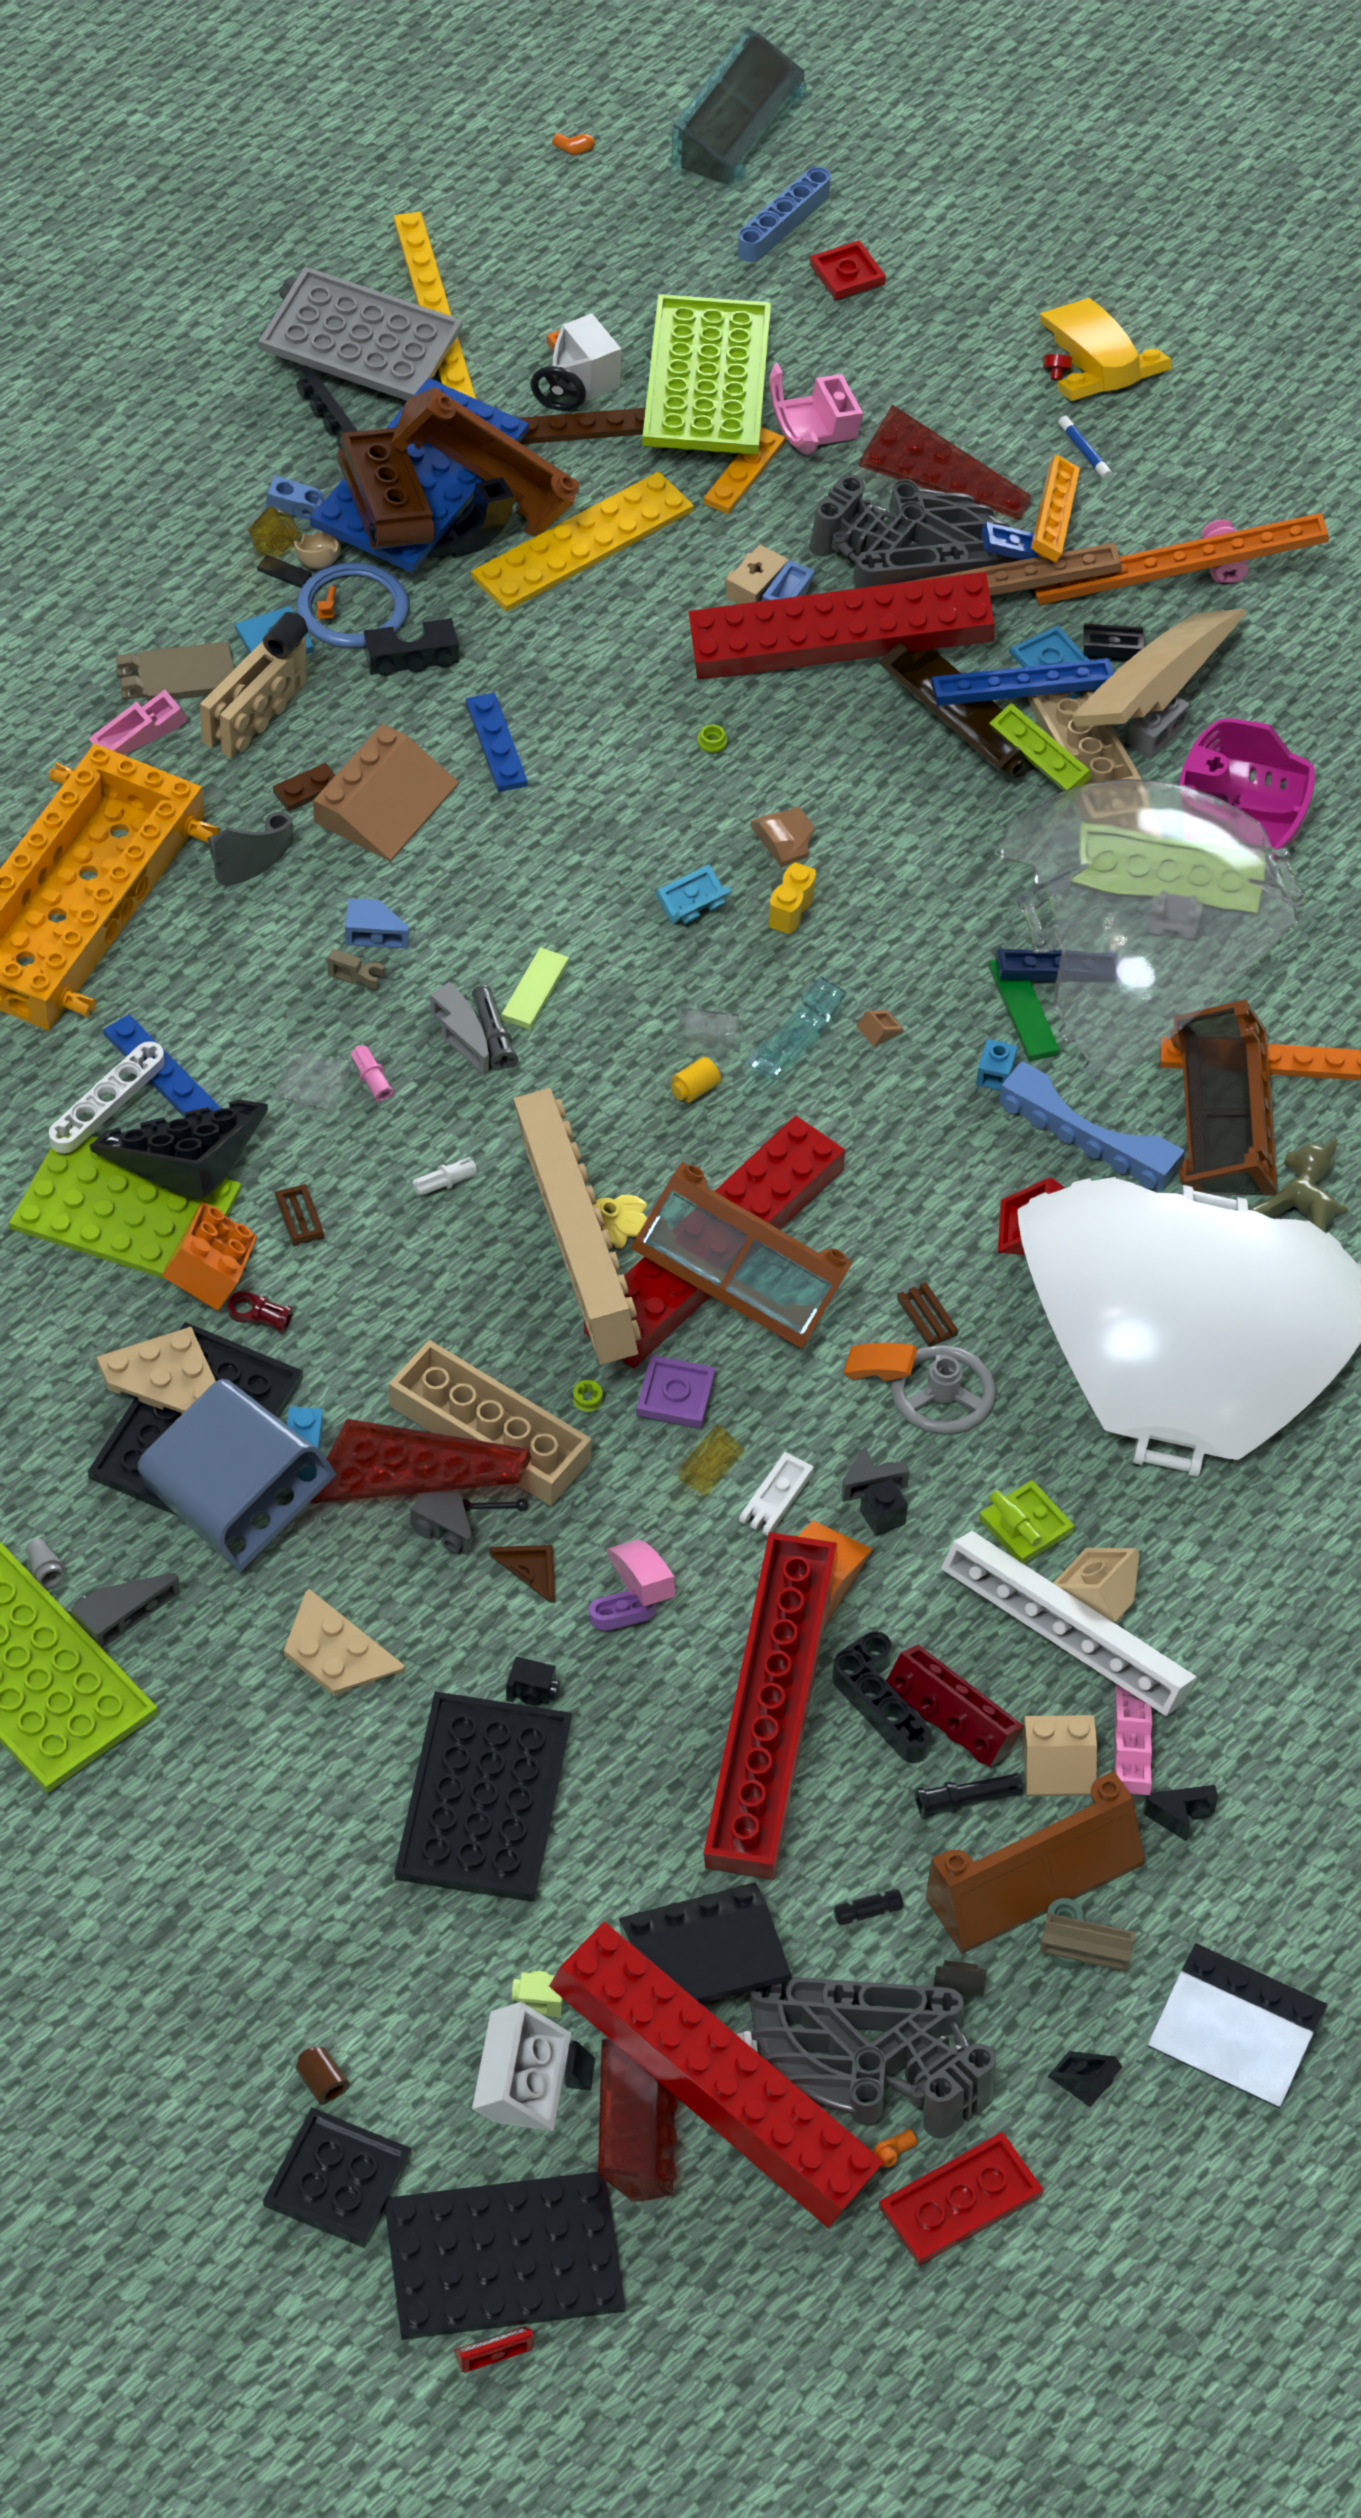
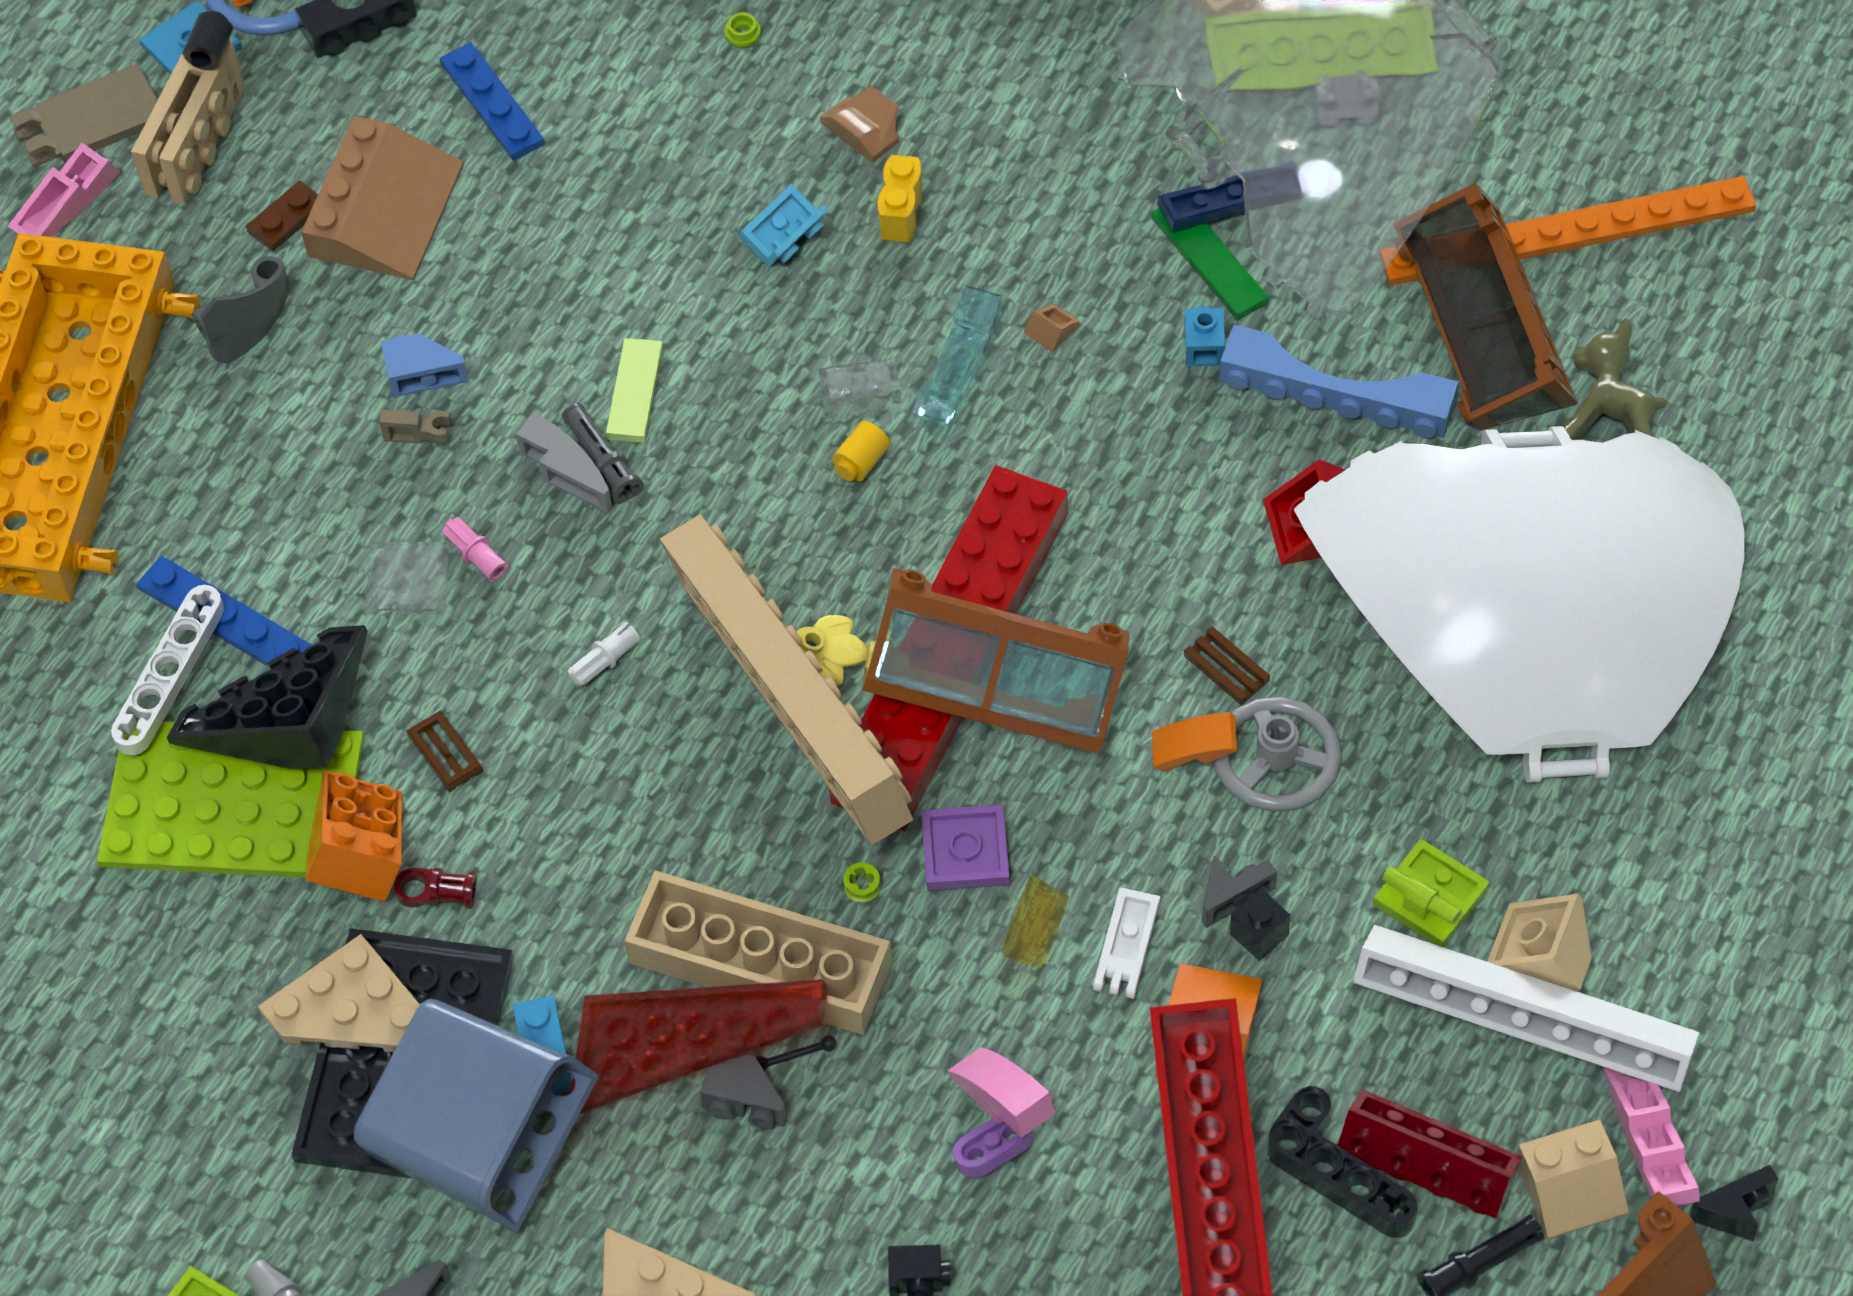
camera: 10 degrees left, 5 degrees up
(531, 1565) = (864, 1118): reddish brown tile -> none

